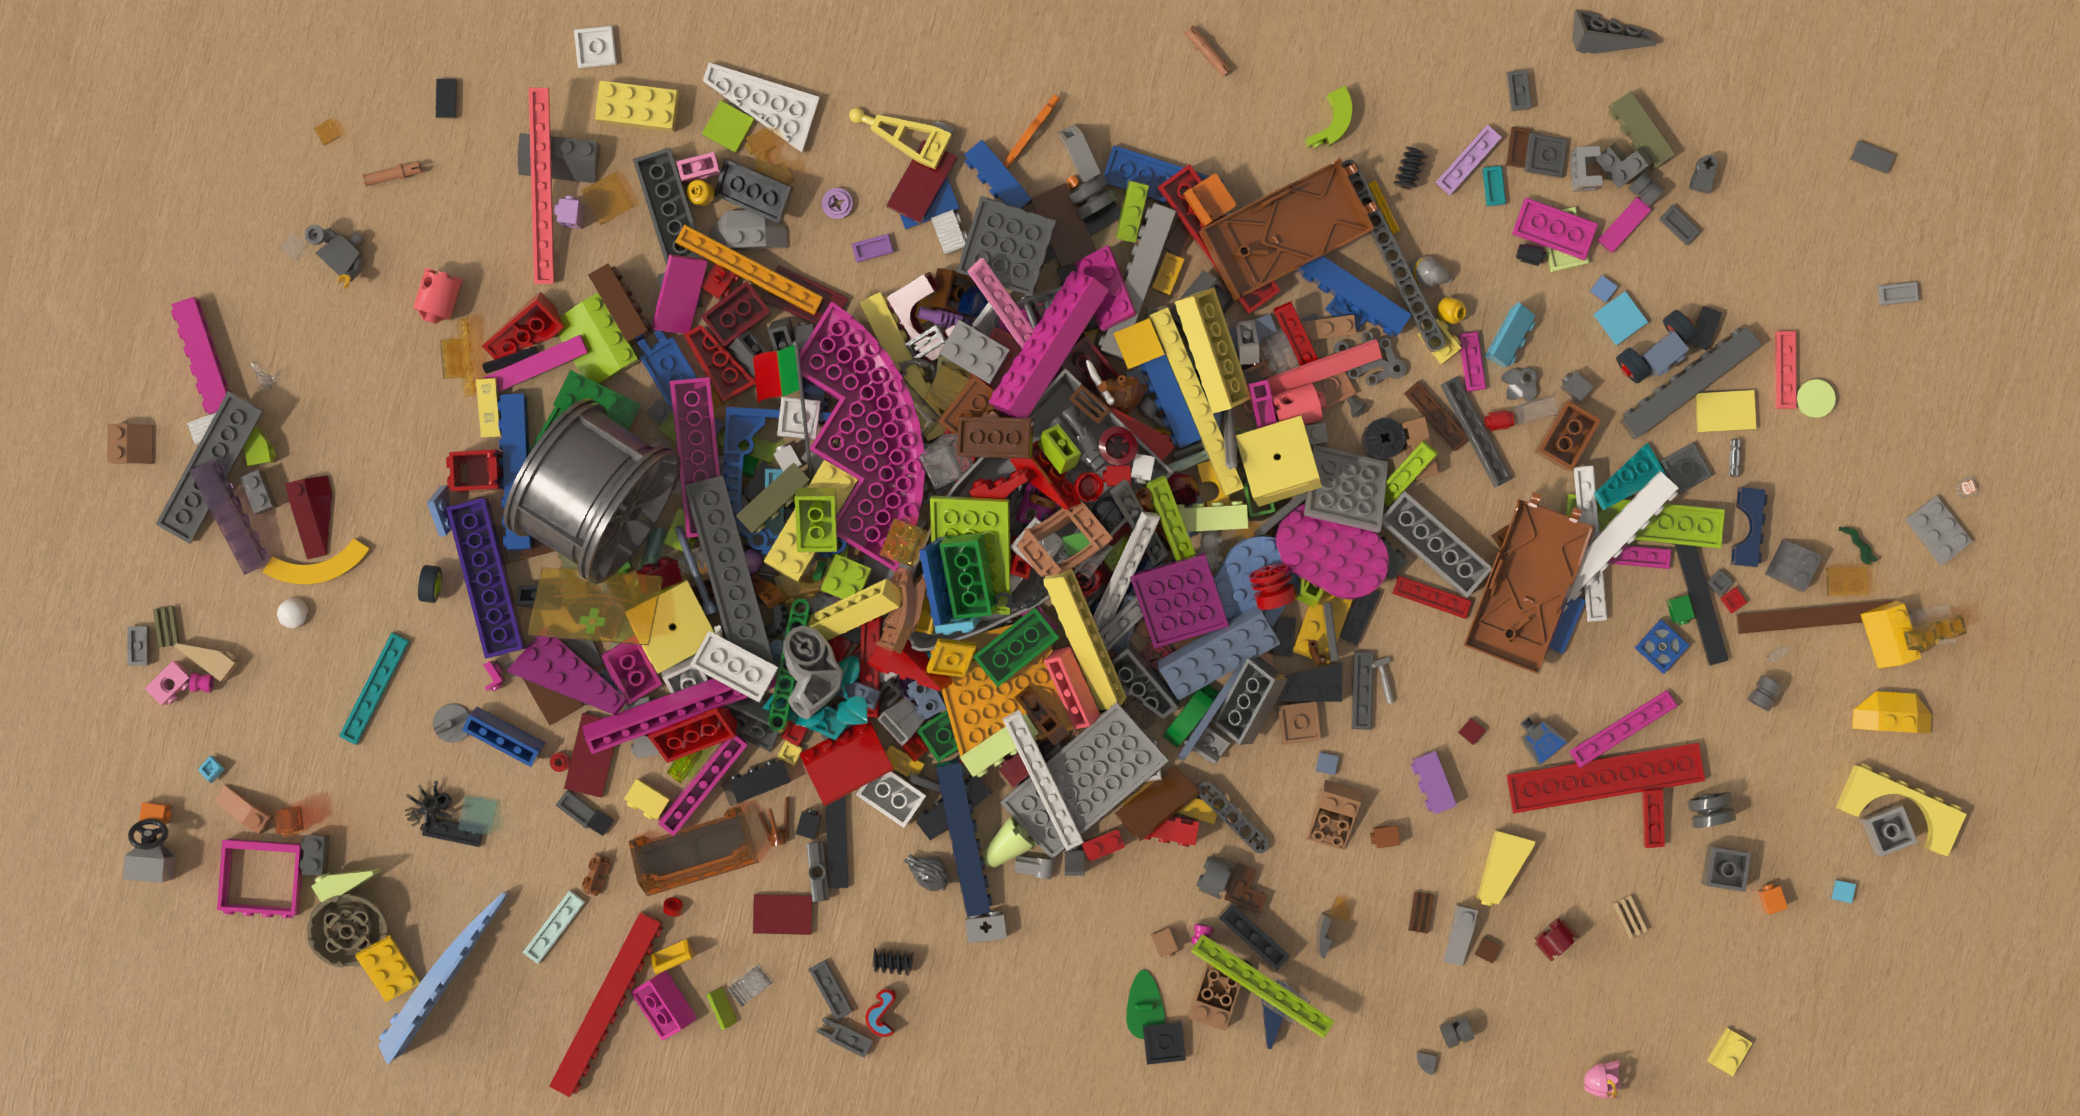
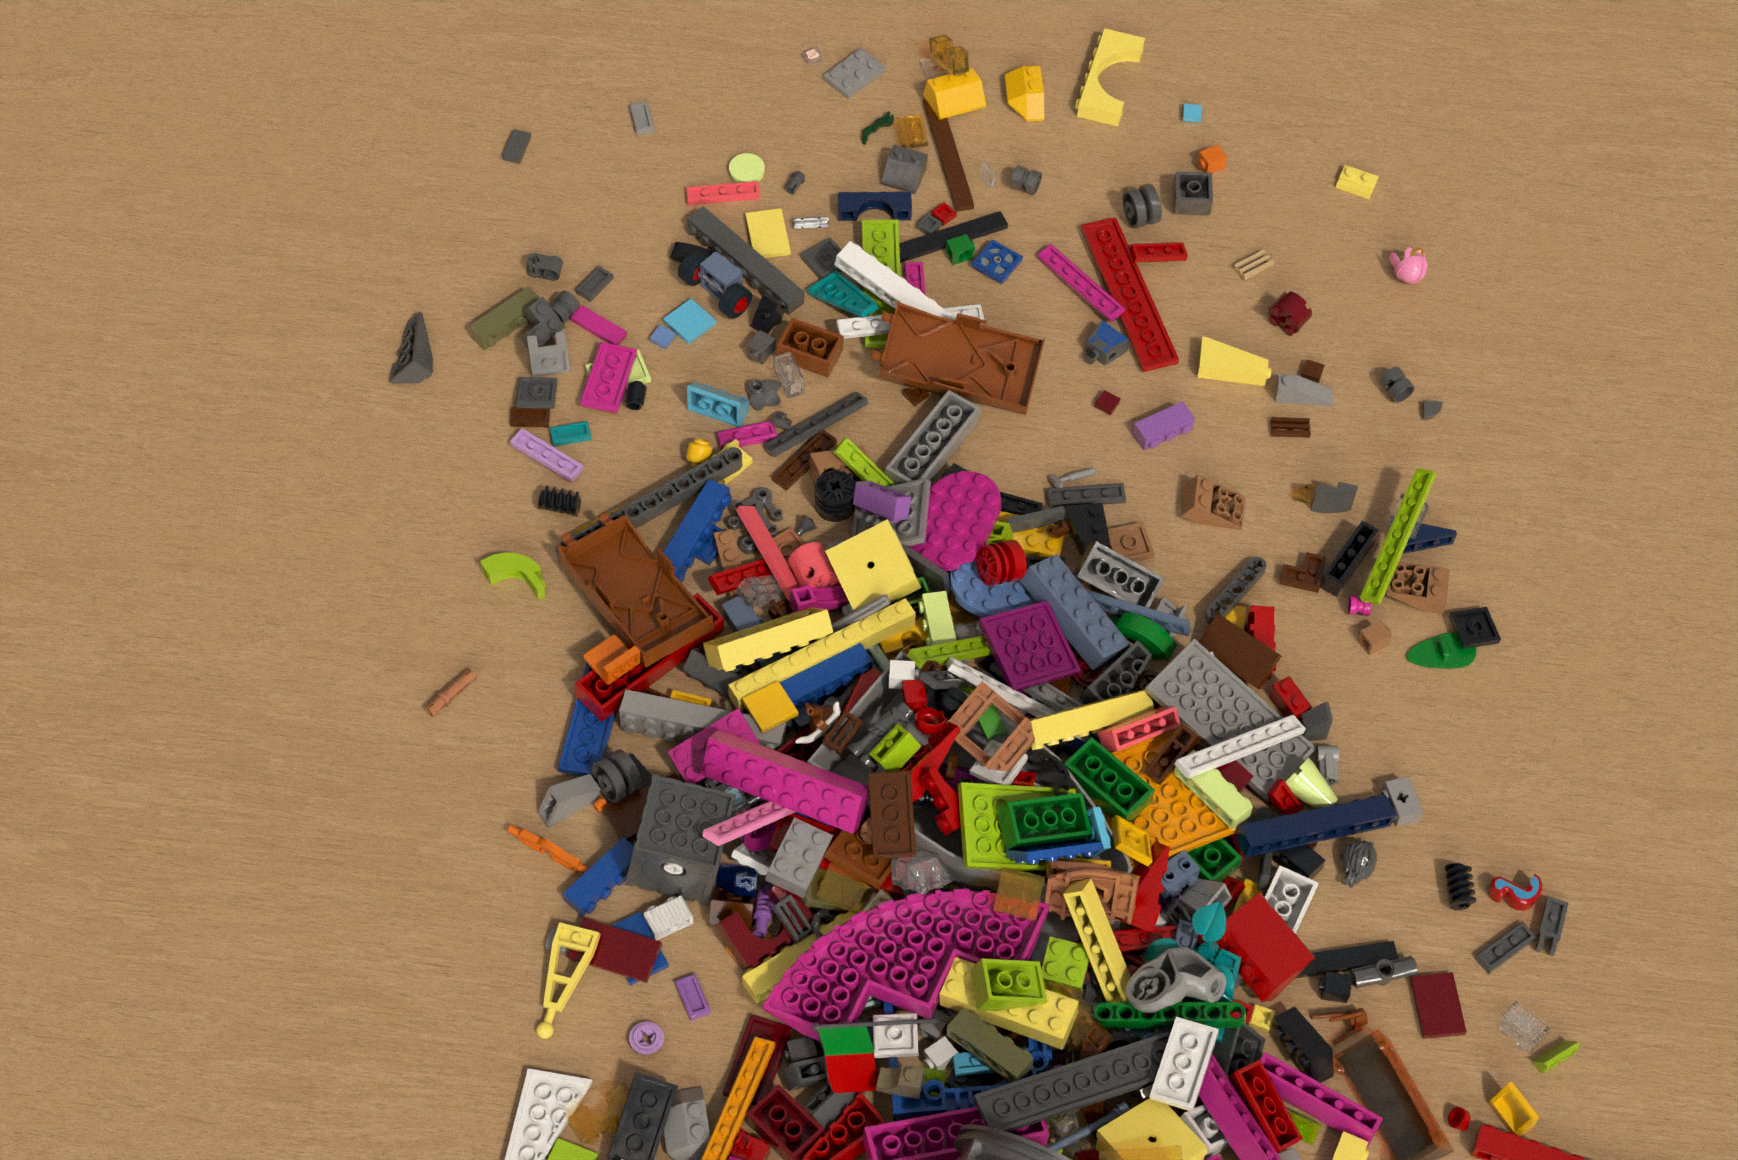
camera: 100 degrees left, 30 degrees down
(664, 1005) = (1570, 1114): dark pink slope -> none
(751, 415) = (901, 1081): none -> dark tan arch
(996, 816) = (1284, 798): none -> red plate
(1118, 446) = (883, 692): dark red hat -> none
(1131, 211) = (632, 739): lime brick -> none
(1215, 877) = (1299, 595): dark grey brick -> none
(1247, 342) = (754, 613): light grey slope -> none
(1327, 763) = (1164, 518): sand blue tile -> none
(1359, 480) = (881, 501): none -> medium lavender brick
(1385, 836) = (1224, 459): dark orange brick -> none
(1429, 272) = (661, 473): light grey hair -> none
(1432, 597) = (984, 443): red tile -> none
(1483, 398) = (781, 421): none -> flat silver tile
(1499, 420) = (802, 405): red brick -> none
(1518, 90) = (473, 420): dark grey plate -> none
(1615, 398) = (768, 313): none -> black brick
(1790, 447) = (794, 183): none -> dark grey pin
(1889, 830) = (1131, 81): light grey brick -> none

